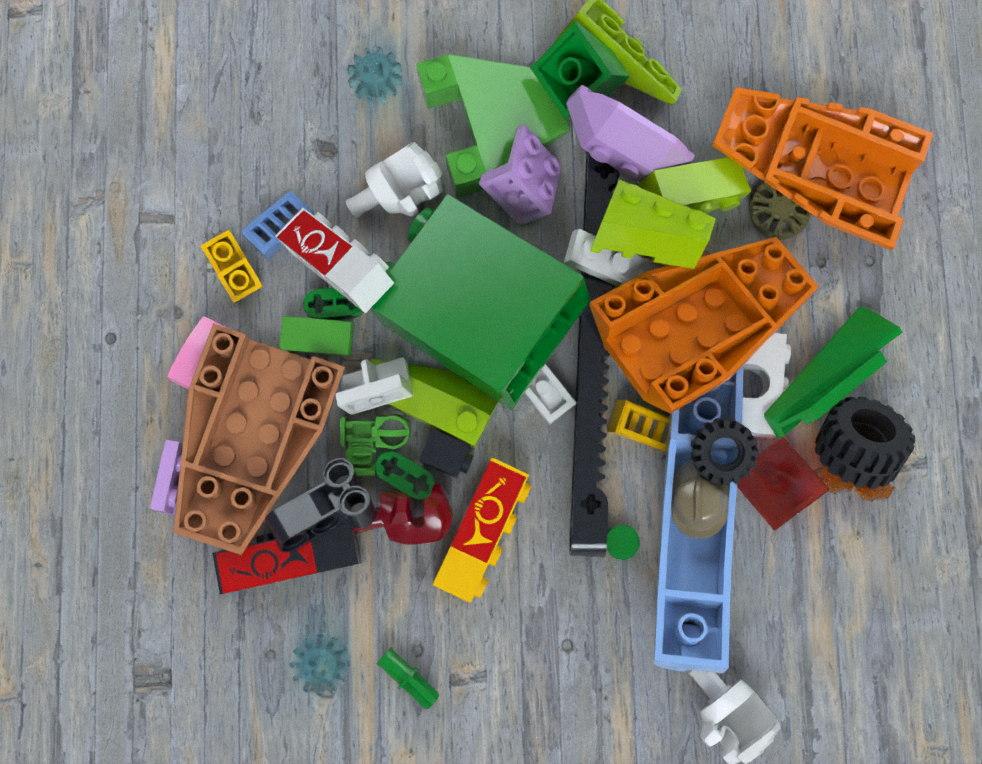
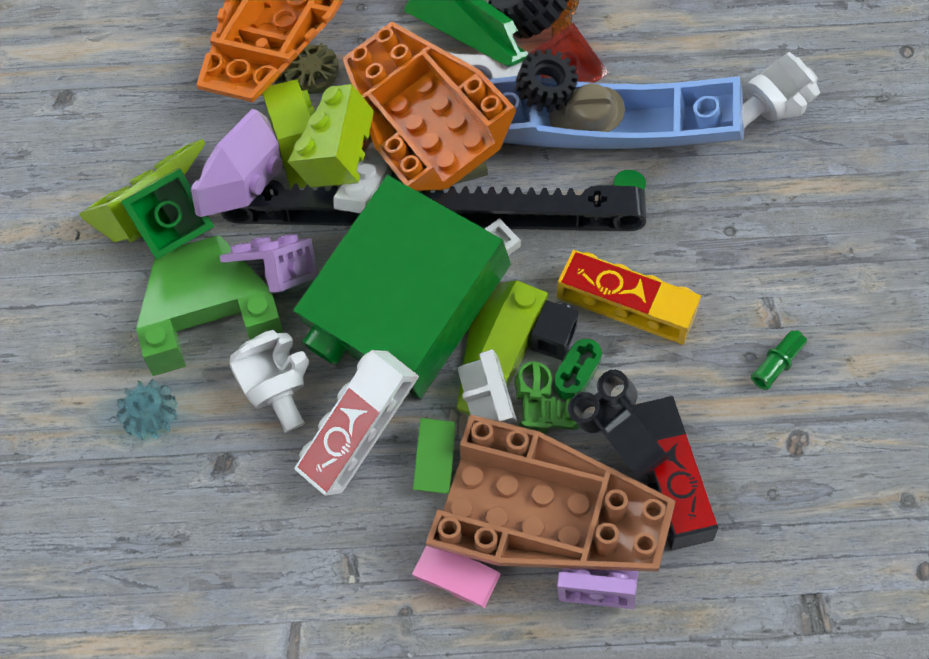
camera: 85 degrees left, 20 degrees down
(231, 266) = (355, 551): yellow slope -> none
(261, 223) = (327, 523): medium blue slope -> none
(308, 666) = (782, 424): clear light blue gear -> none
(333, 312) = (405, 442): green beam -> none
(402, 528) = (624, 343): dark red piece -> none
(619, 418) = (517, 169): yellow slope -> none

